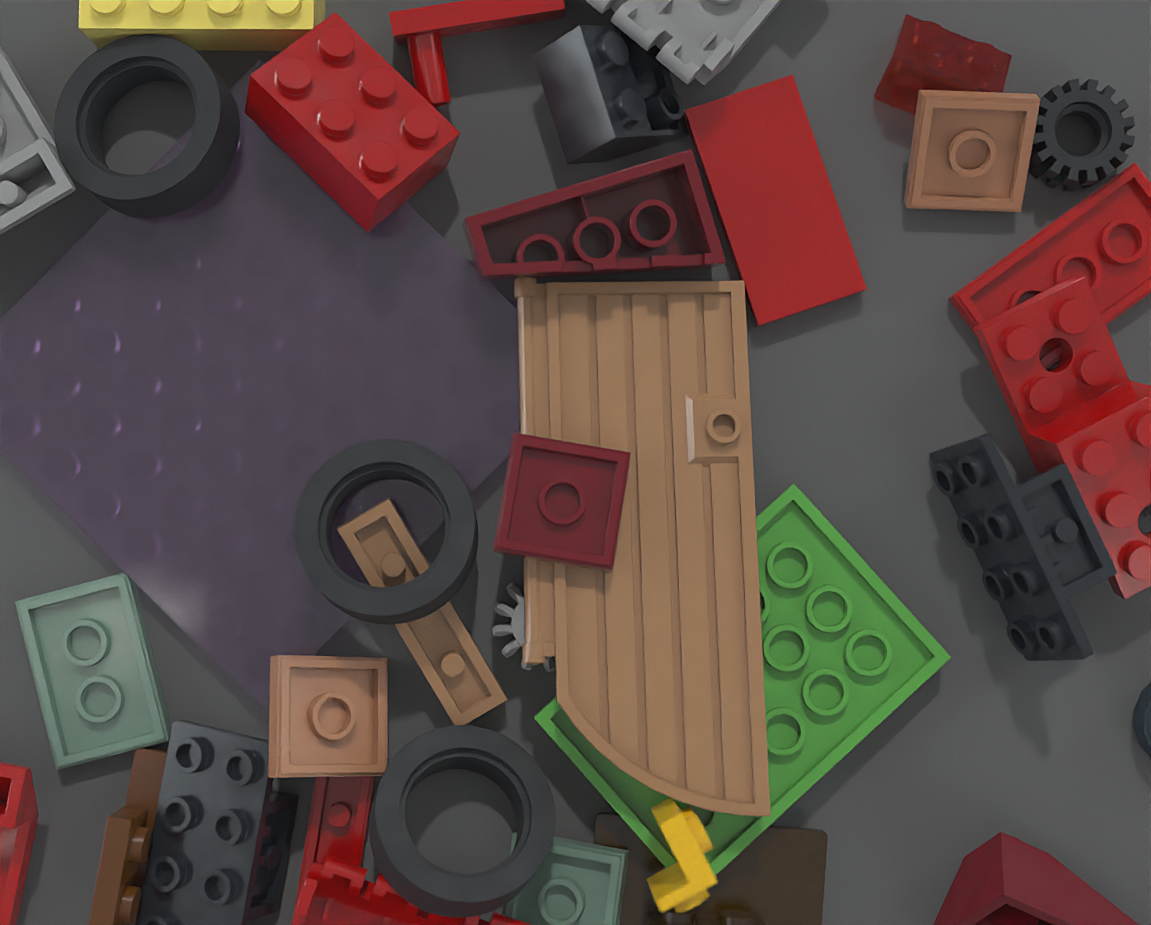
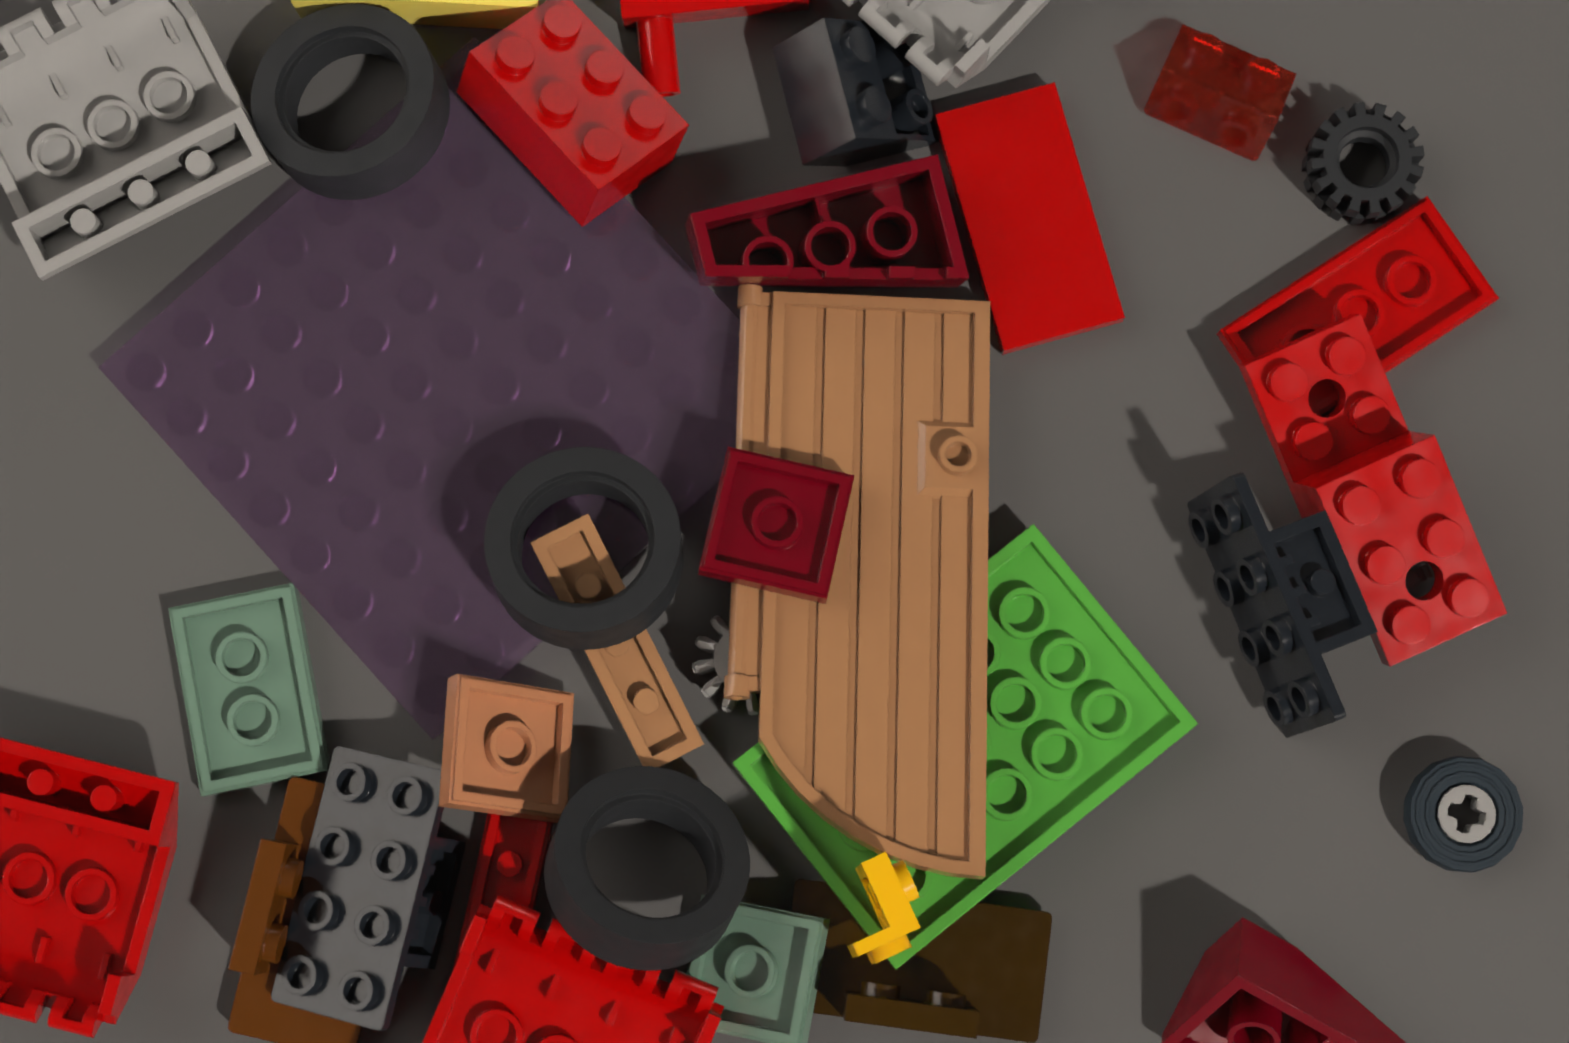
camera: 10 degrees right, 5 degrees down
(970, 150) = (1244, 174): nougat tile -> none

